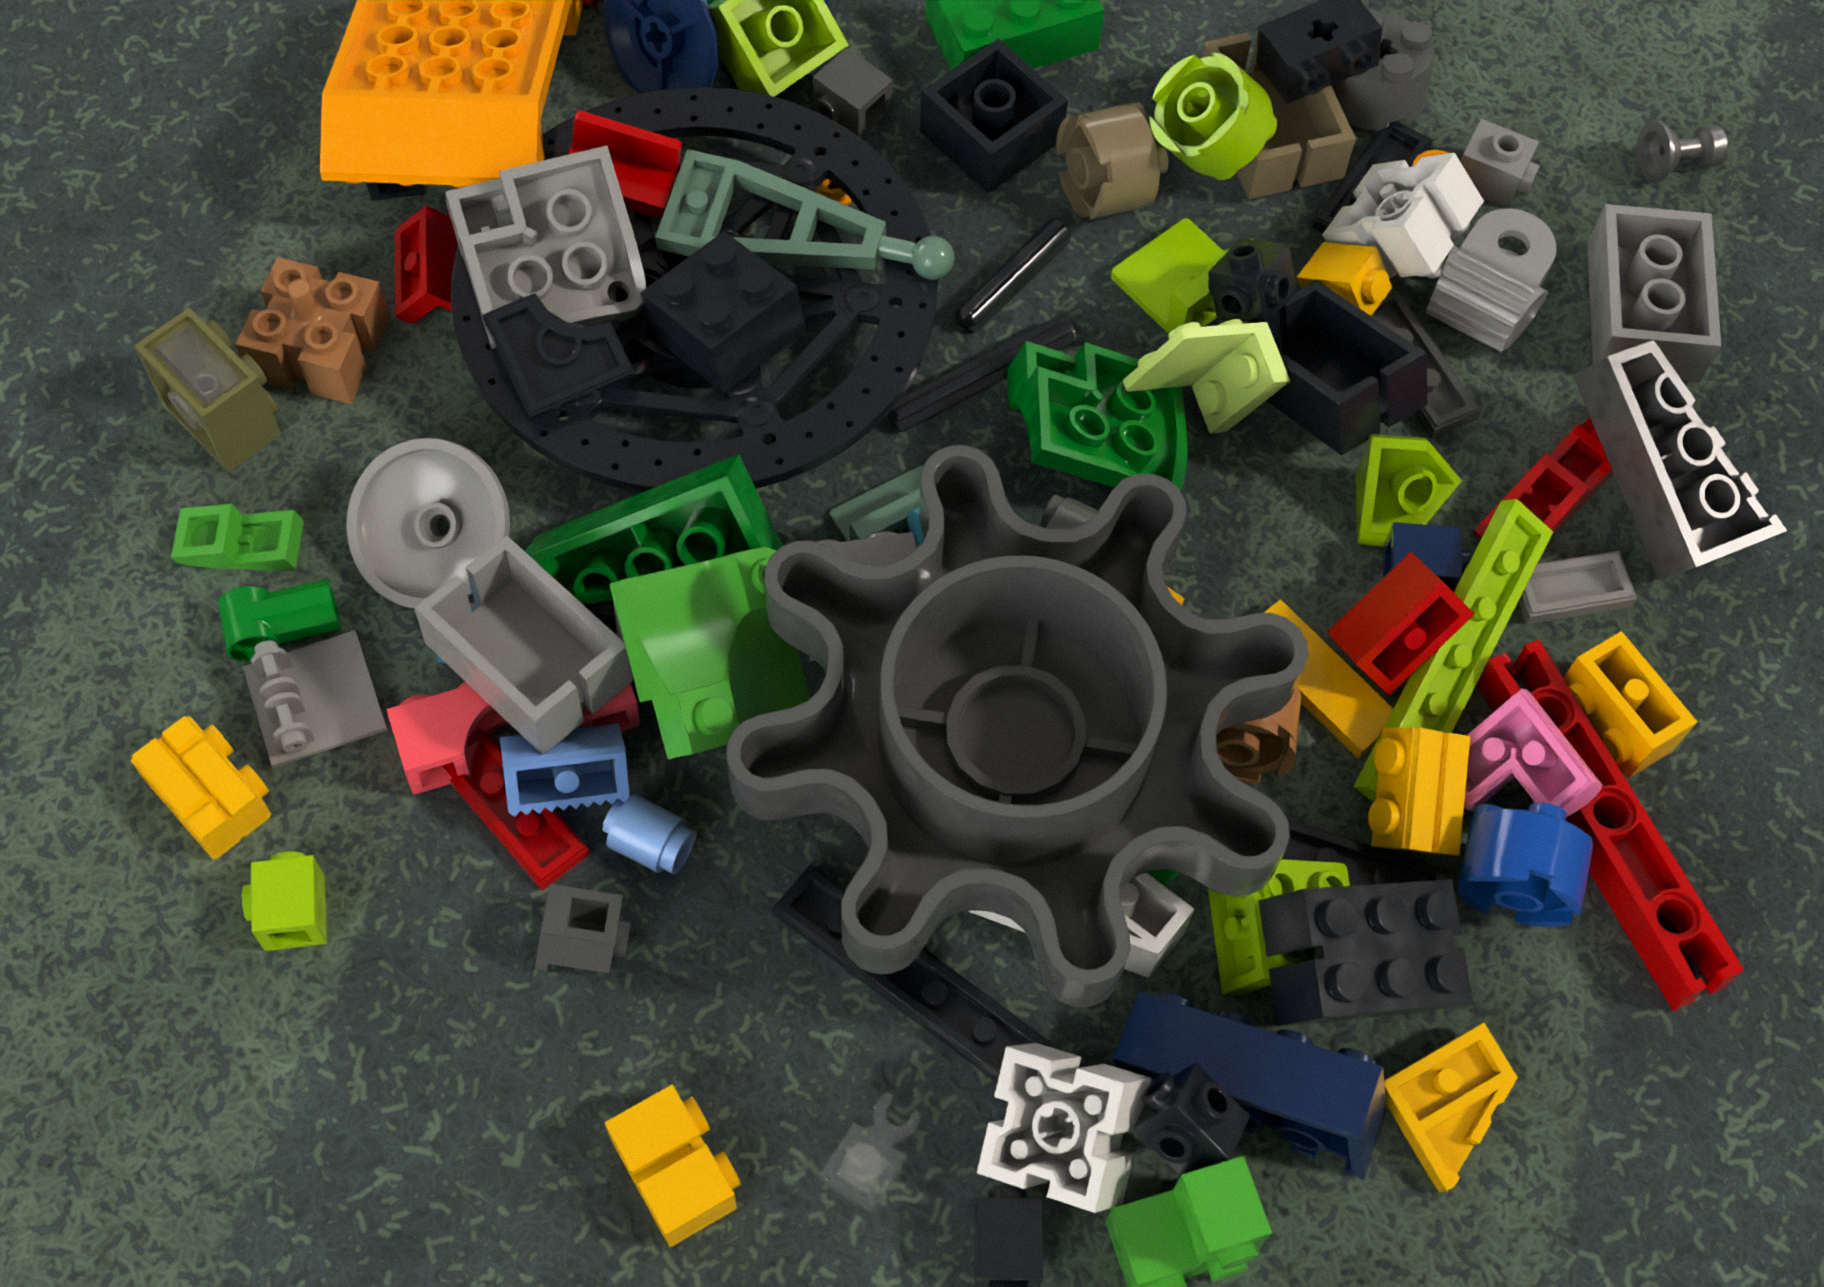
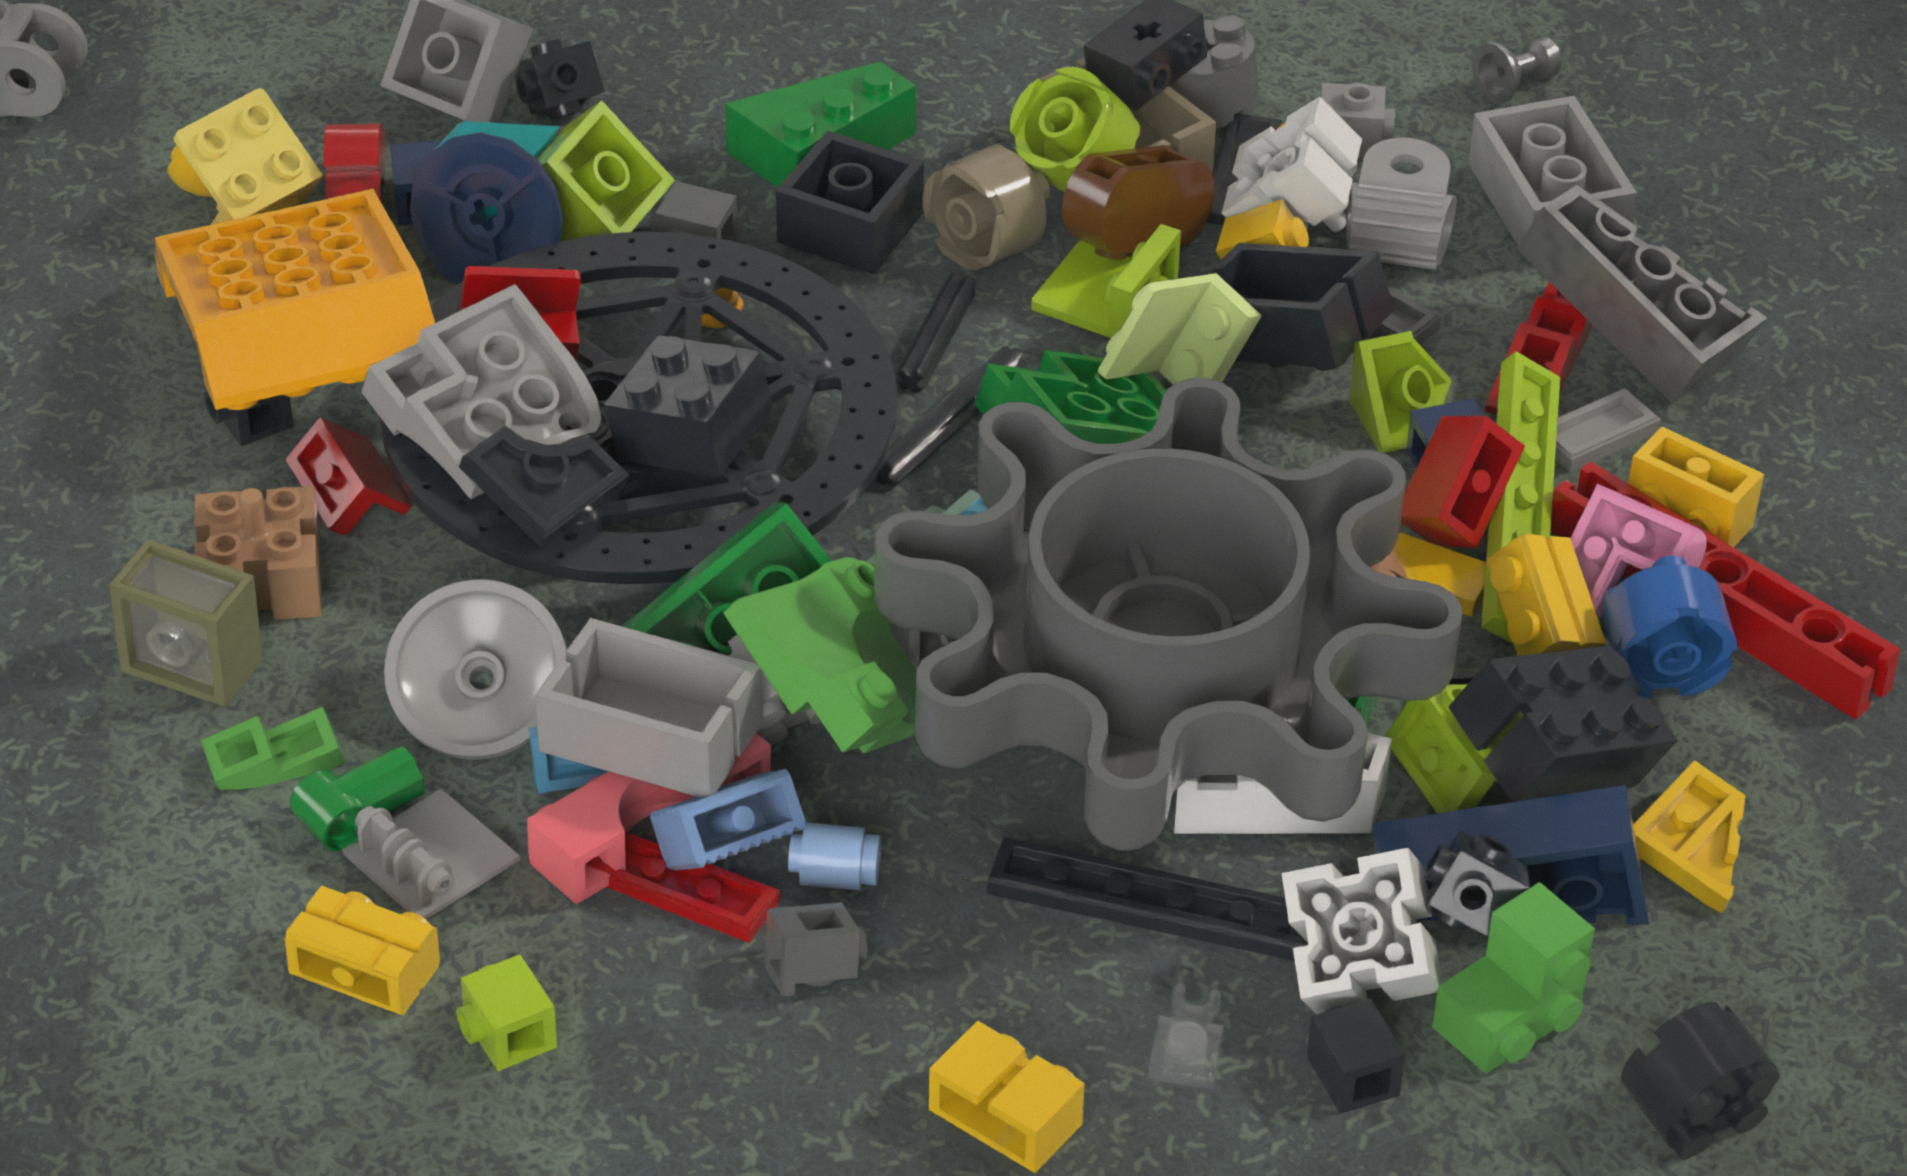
camera: 20 degrees left, 20 degrees down
(706, 188) = (613, 331): sand green plate -> none
(1245, 197) = (1127, 194): none -> reddish brown brick
(1252, 281) = (1184, 244): black brick -> none

